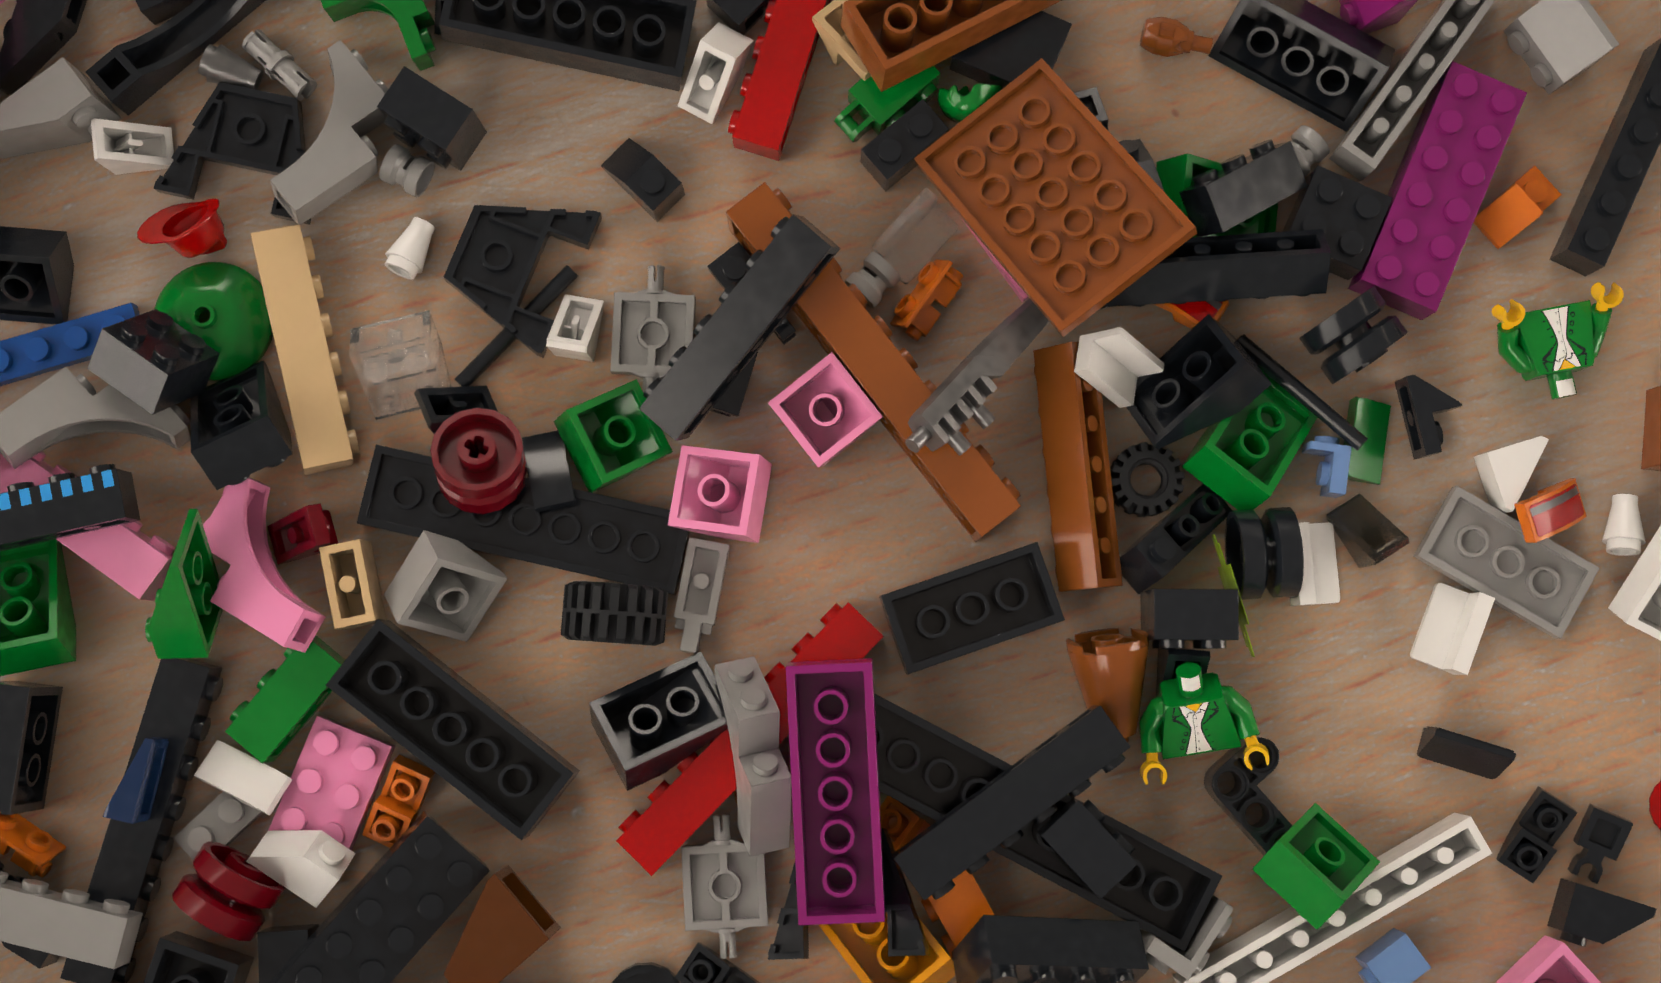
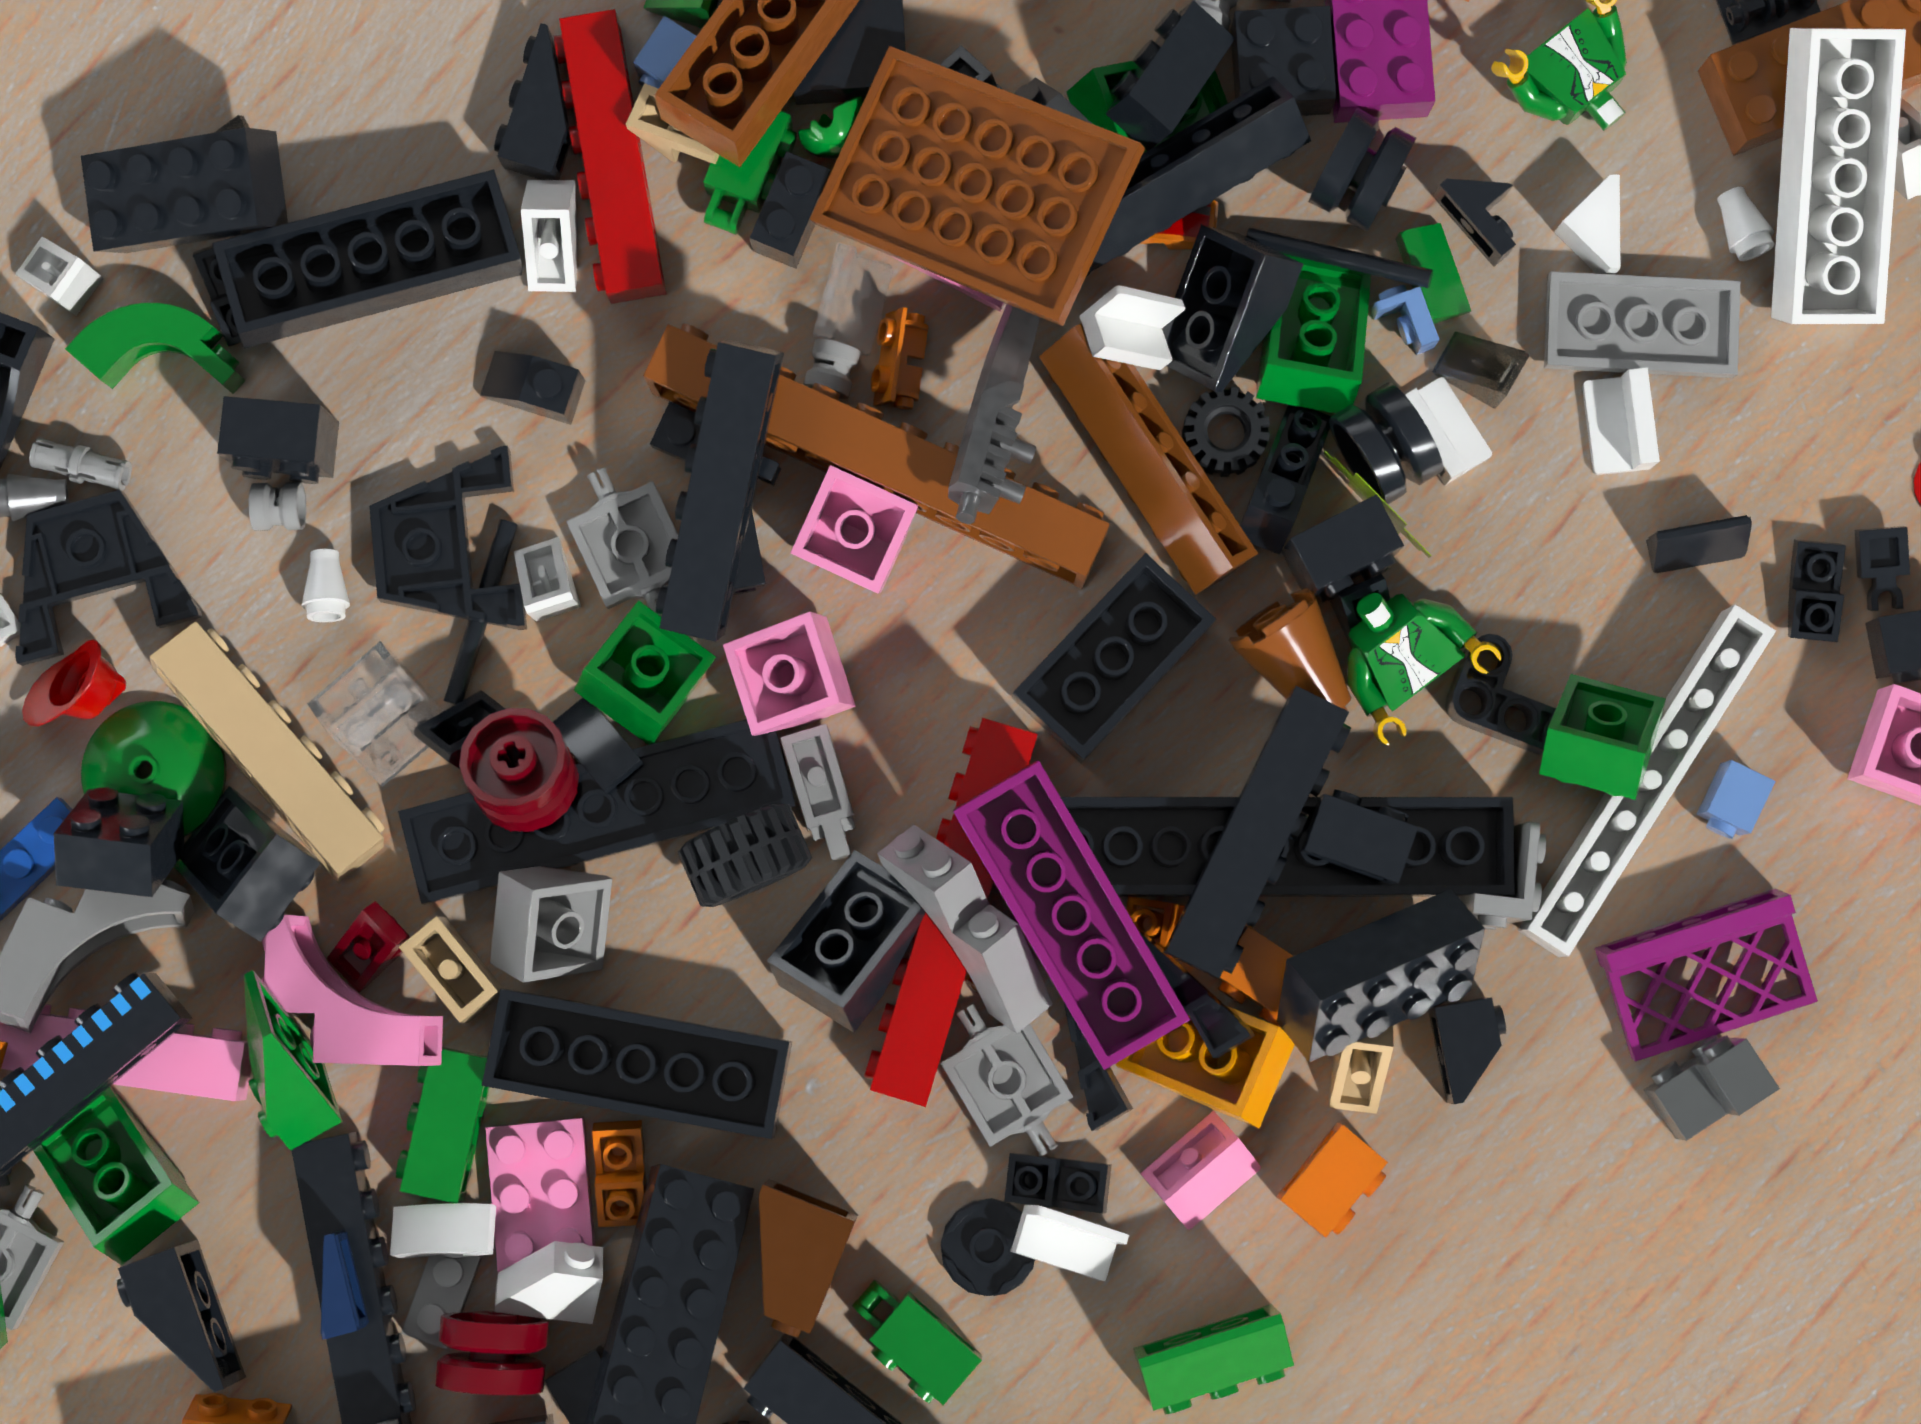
camera: 25 degrees left, 0 degrees up
(341, 153) = (200, 525): light grey arch -> none
(1550, 511) = (1659, 247): slope -> none

